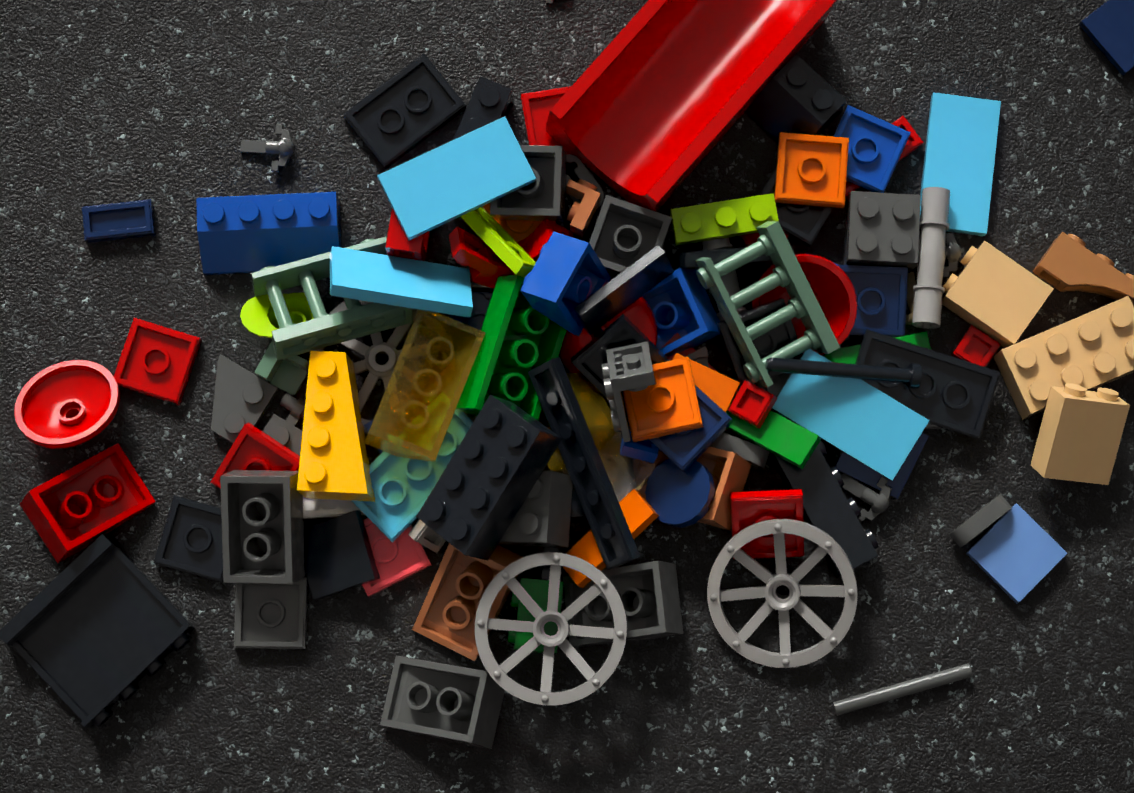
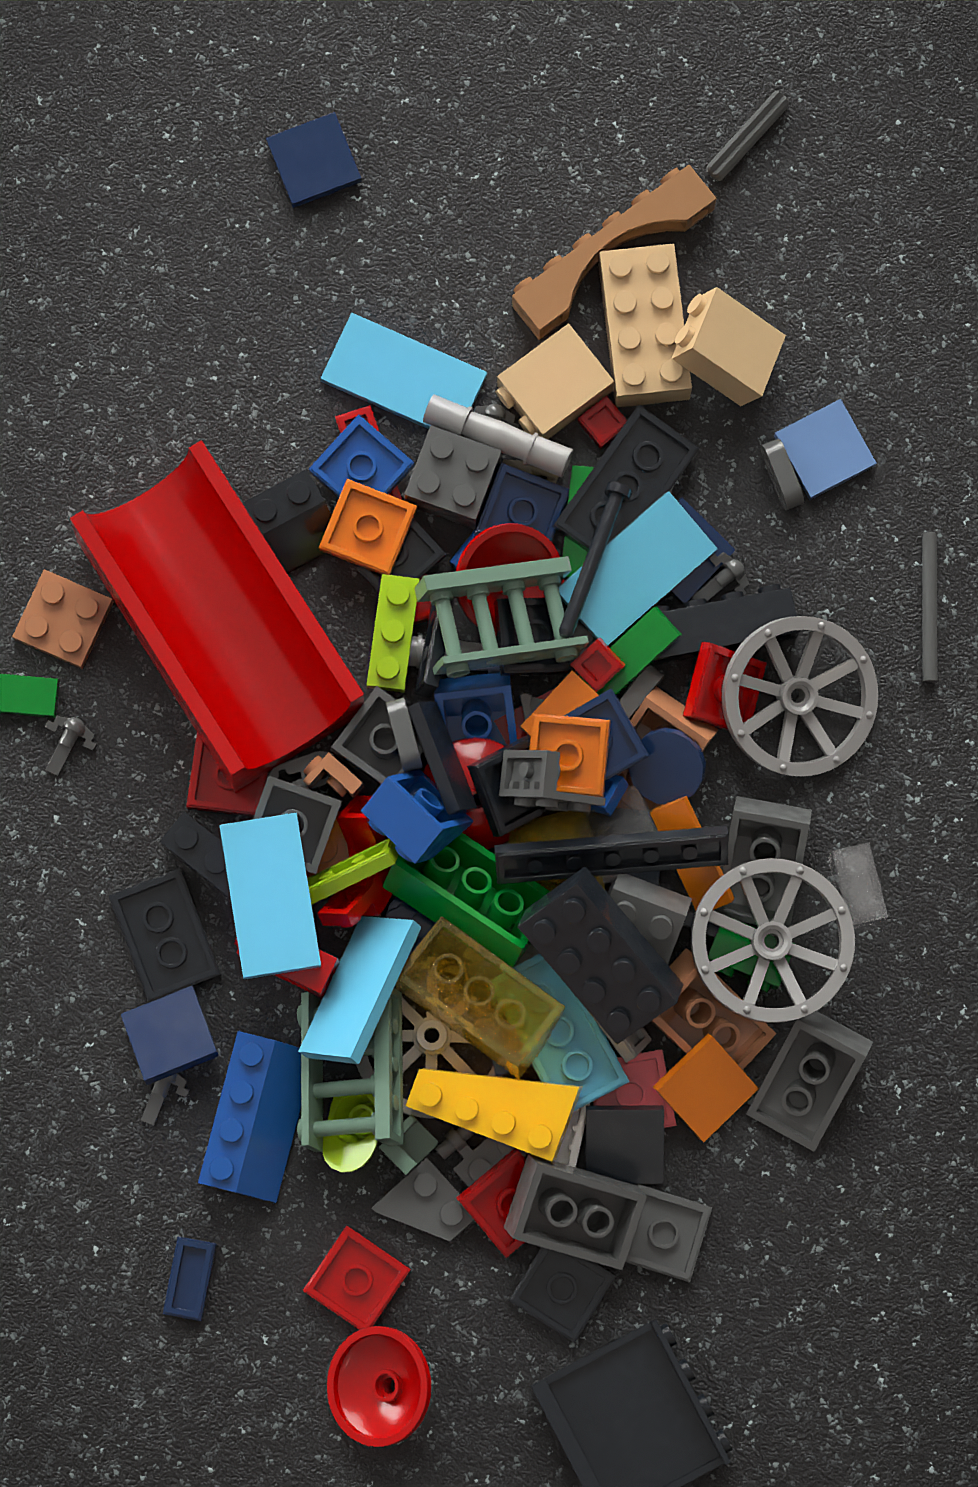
camera: 70 degrees left, 0 degrees up
(86, 502) = (490, 1396): red slope -> none
(318, 139) = (169, 1035): none -> dark blue tile
(406, 611) = (705, 1087): none -> orange tile
(626, 694) = (858, 884): none -> clear brick
(633, 250) = (404, 735): none -> dark grey beam

